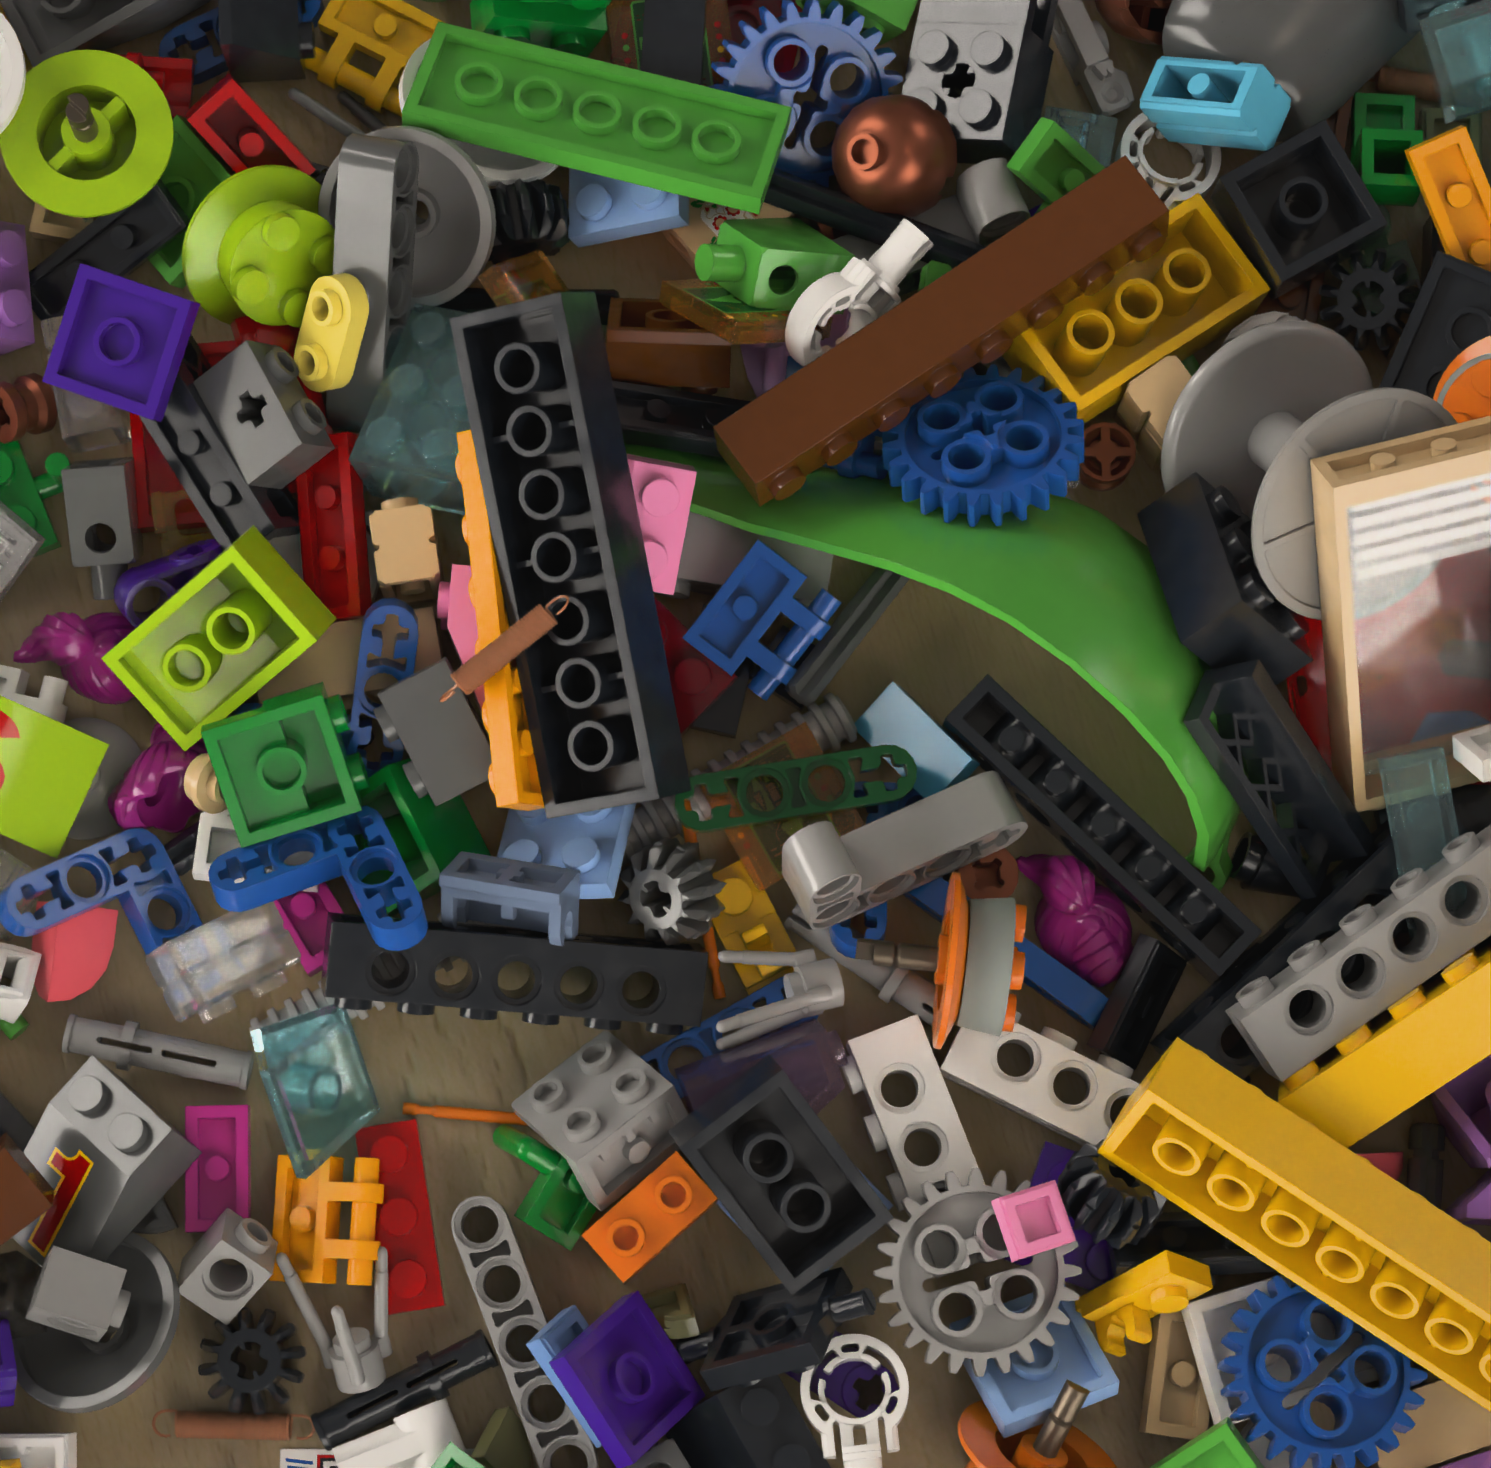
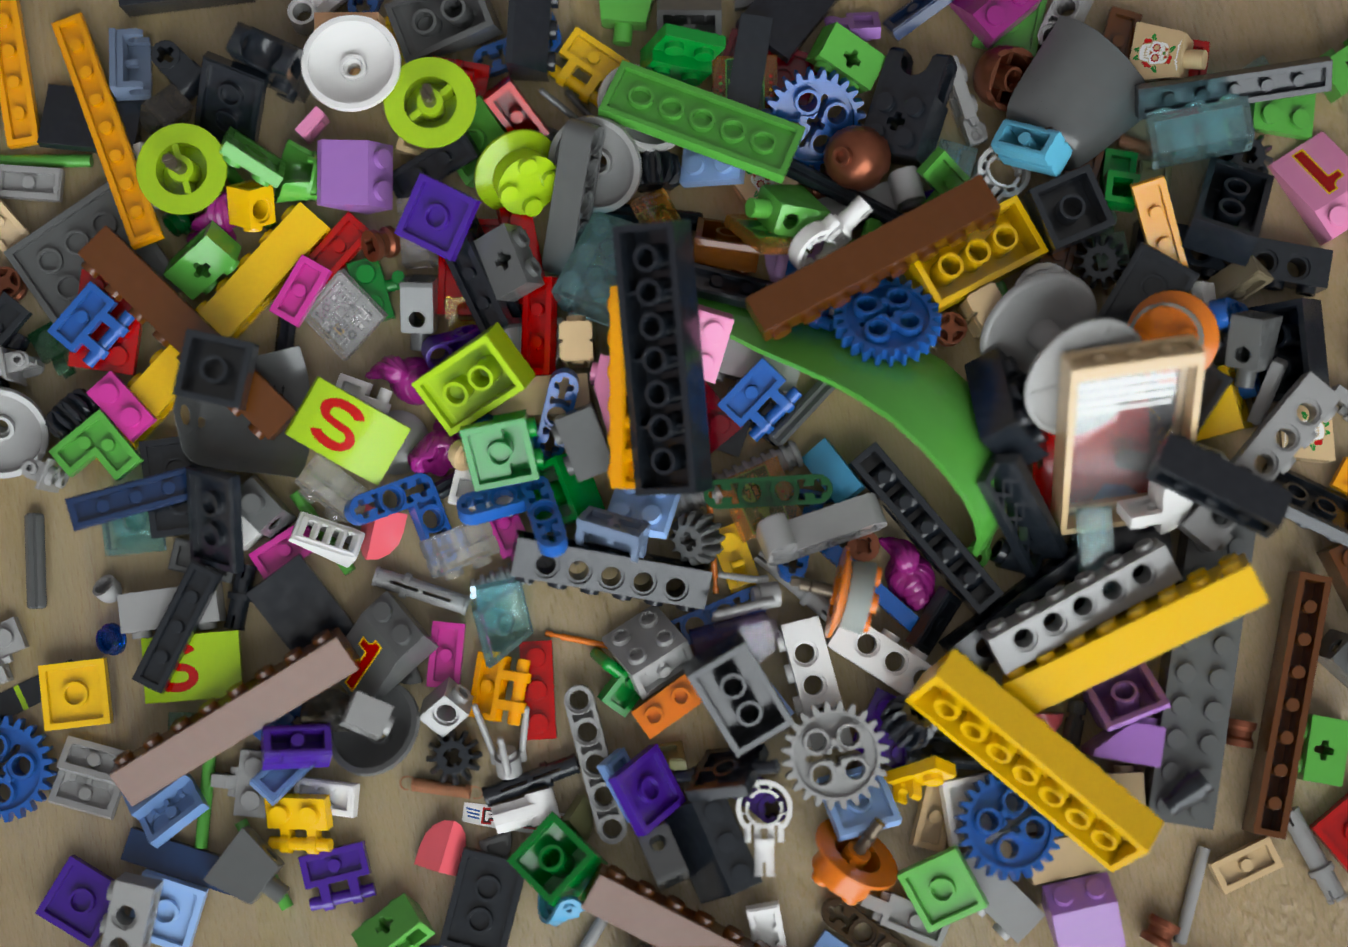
camera: 10 degrees right, 5 degrees up
(331, 332) = (549, 222): light yellow plate -> none
(504, 649) = (622, 405): nougat piece -> none
(1033, 1220) = (867, 733): bright pink tile -> none

